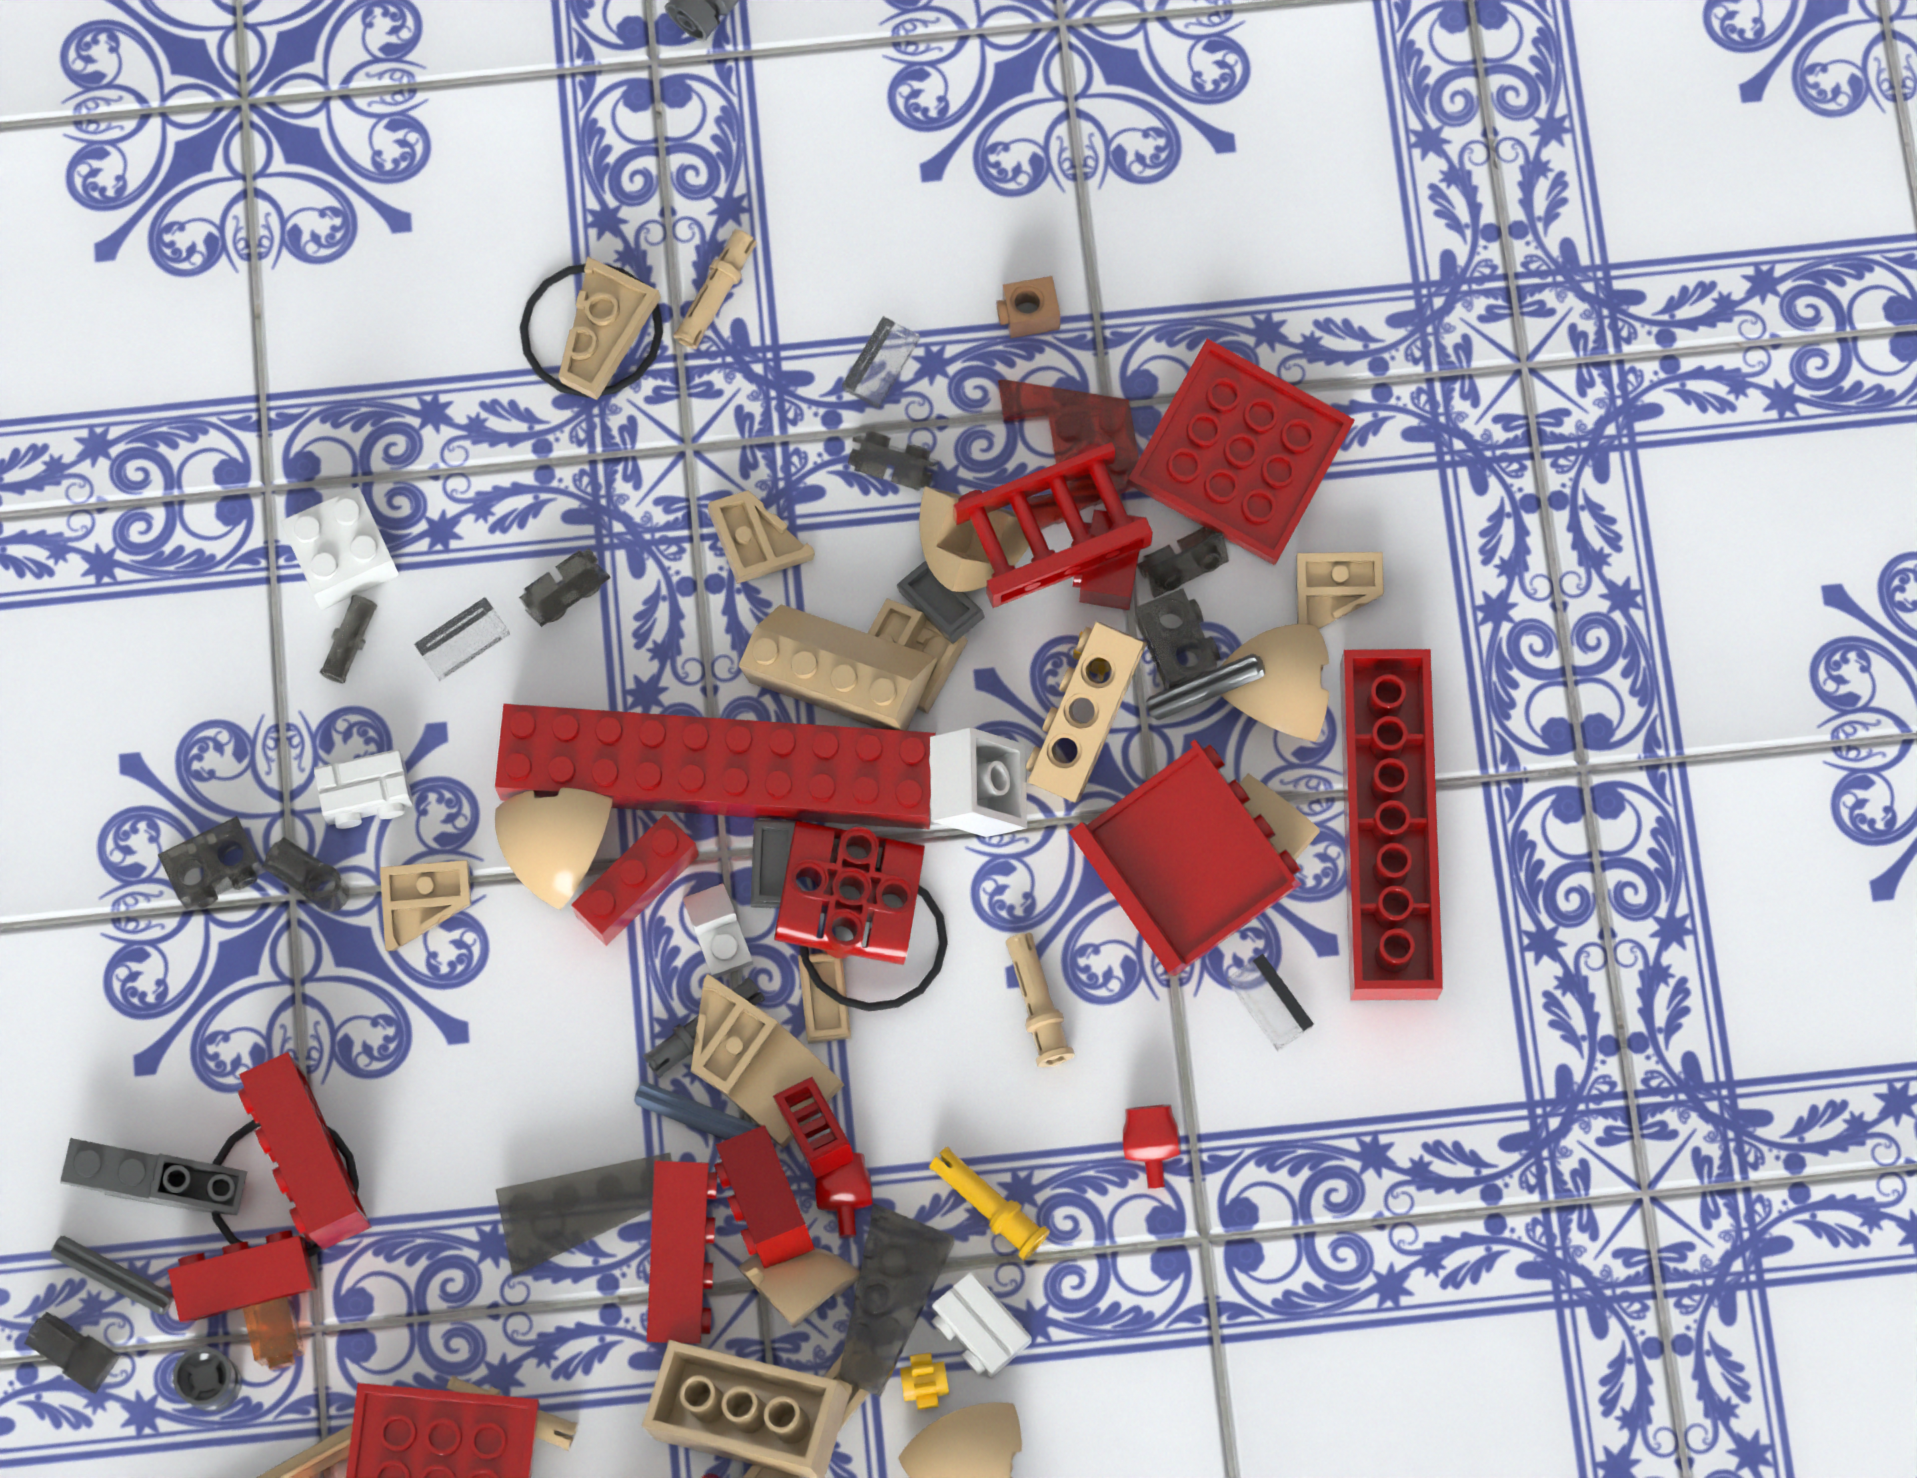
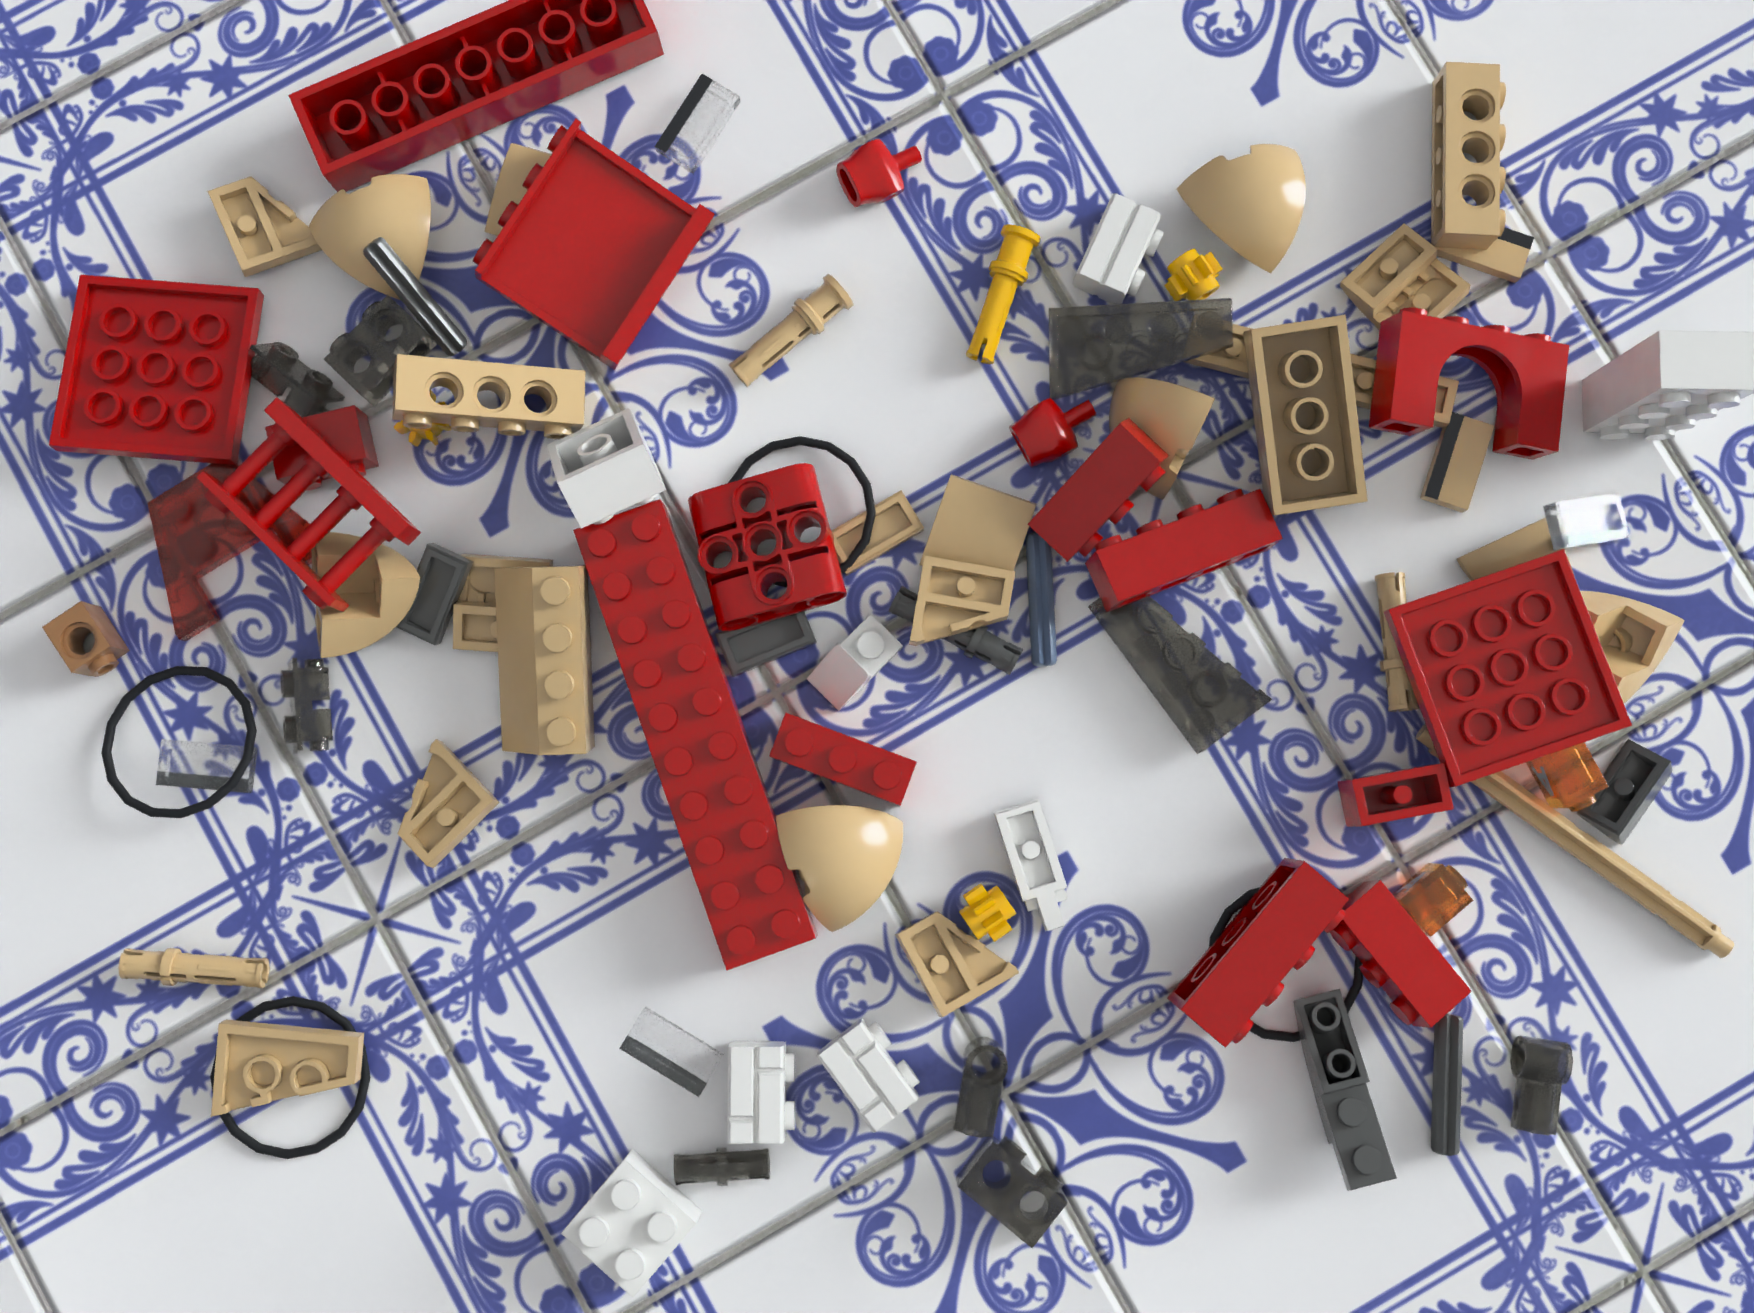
camera: 115 degrees left, 10 degrees up
(207, 1379) = (1507, 939): dark grey wheel -> none
(377, 1337) = (1395, 795): none -> red brick
(394, 693) = (758, 1092): none -> white brick
(448, 944) = (987, 912): none -> yellow gear
(473, 1004) = (1033, 860): none -> white hinge
(549, 600) = (596, 979): clear smoke hinge -> none
(826, 1151) = (1006, 452): red slope -> none
(878, 400) = (220, 793): none -> black piece

